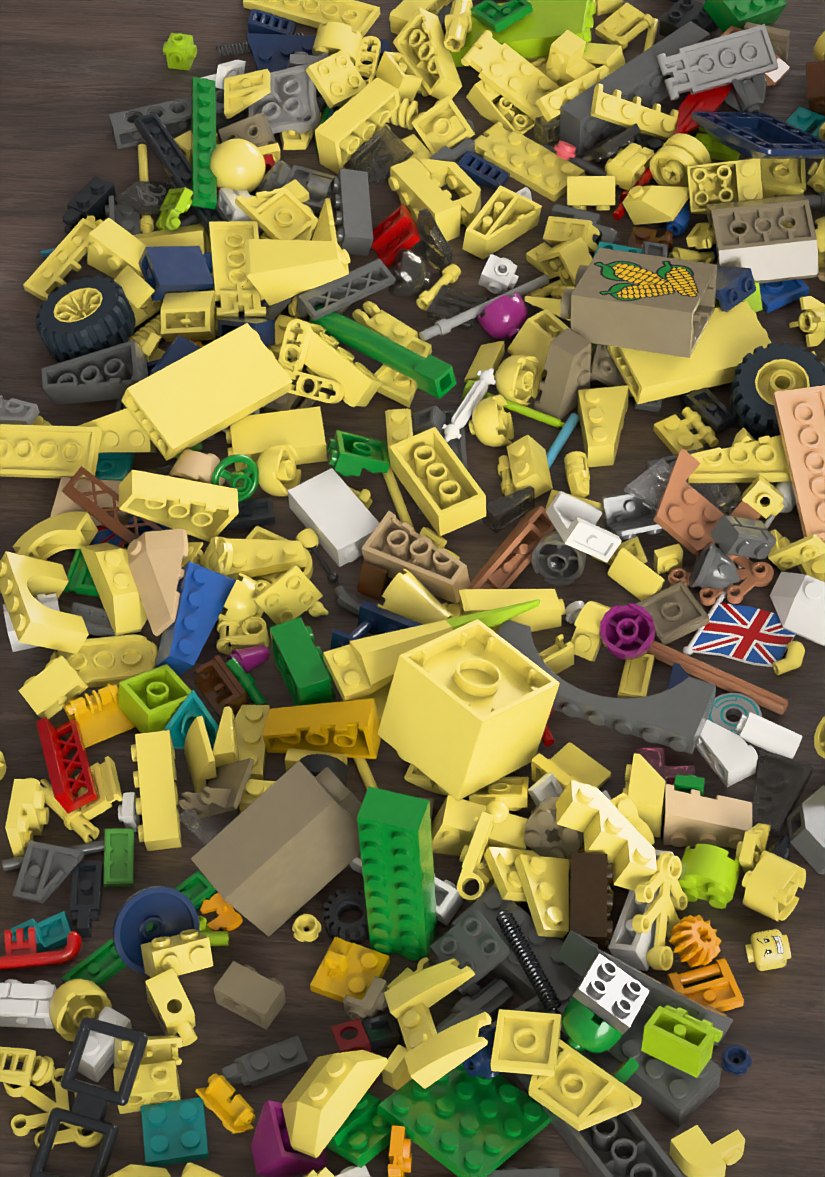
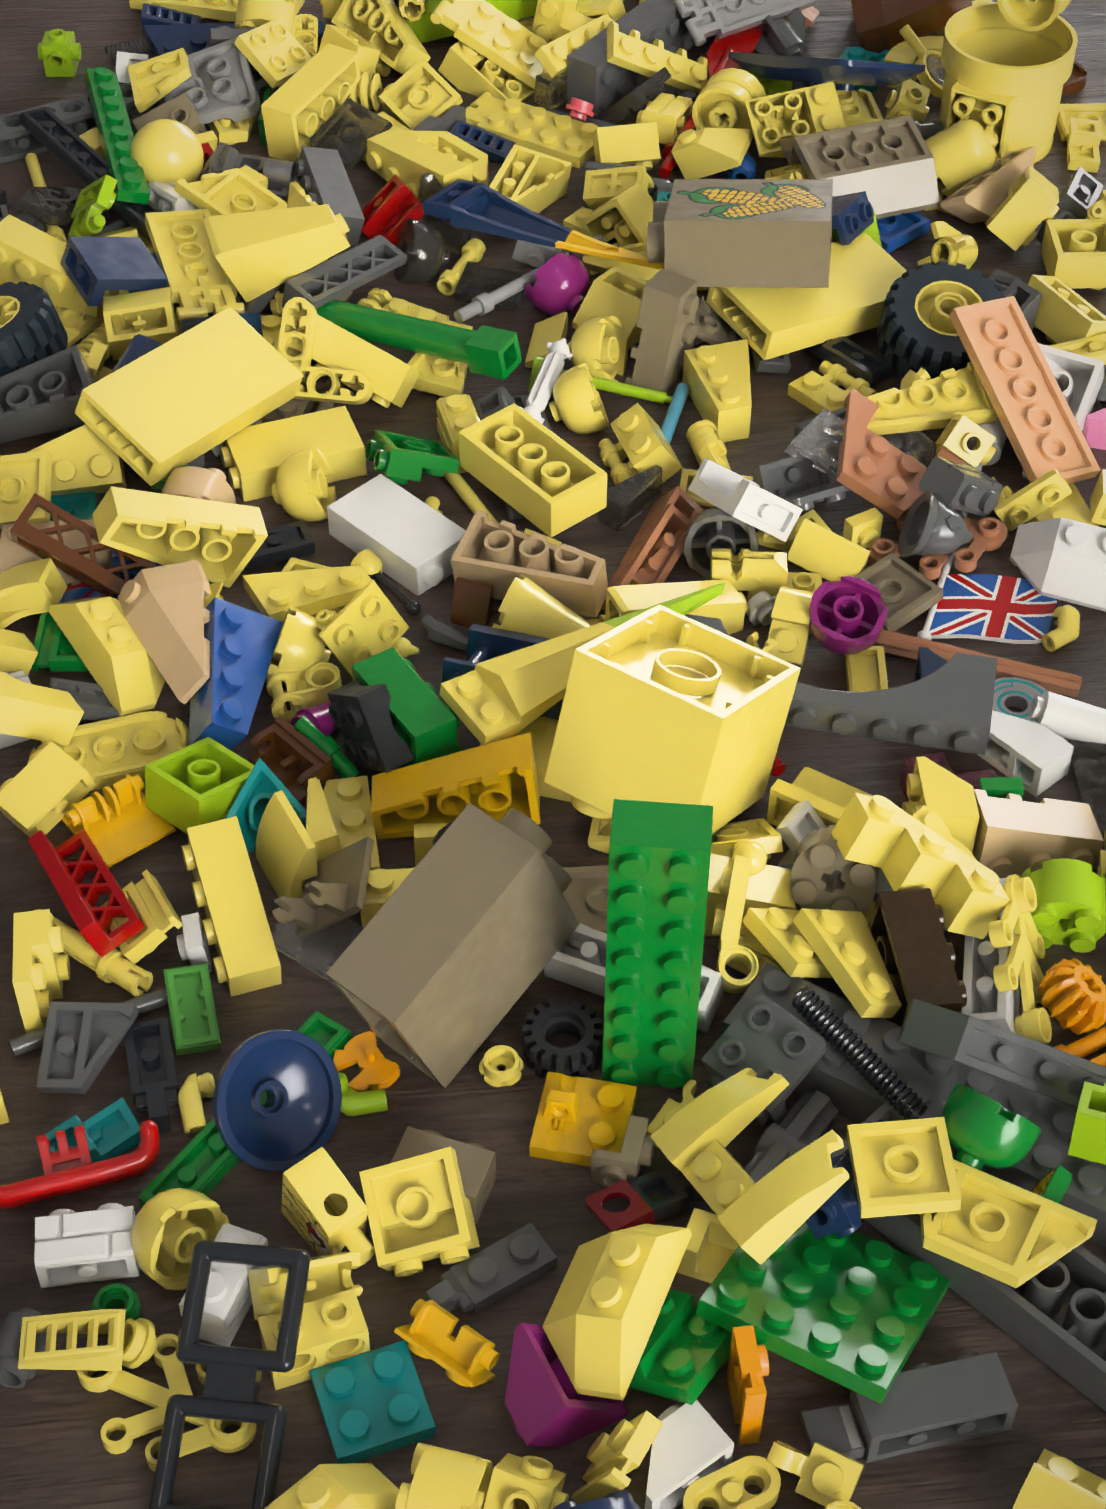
camera: 15 degrees left, 5 degrees down
(36, 1039) = (115, 1296): none -> green plate
(105, 920) = (190, 1101): none -> light yellow arm
(134, 286) = (64, 289): light yellow slope -> none
(182, 952) = (333, 1122): light yellow brick -> none
(218, 556) = (251, 593): light yellow wheel -> none
(226, 1018) = (419, 1212): none -> light yellow plate
(245, 486) = (267, 494): green piece -> none
(271, 667) = (367, 727): none -> black brick
(461, 249) = (487, 211): none -> dark blue plate
(583, 586) = (759, 572): none -> light yellow plate
(611, 993) = (1011, 1074): plate -> none

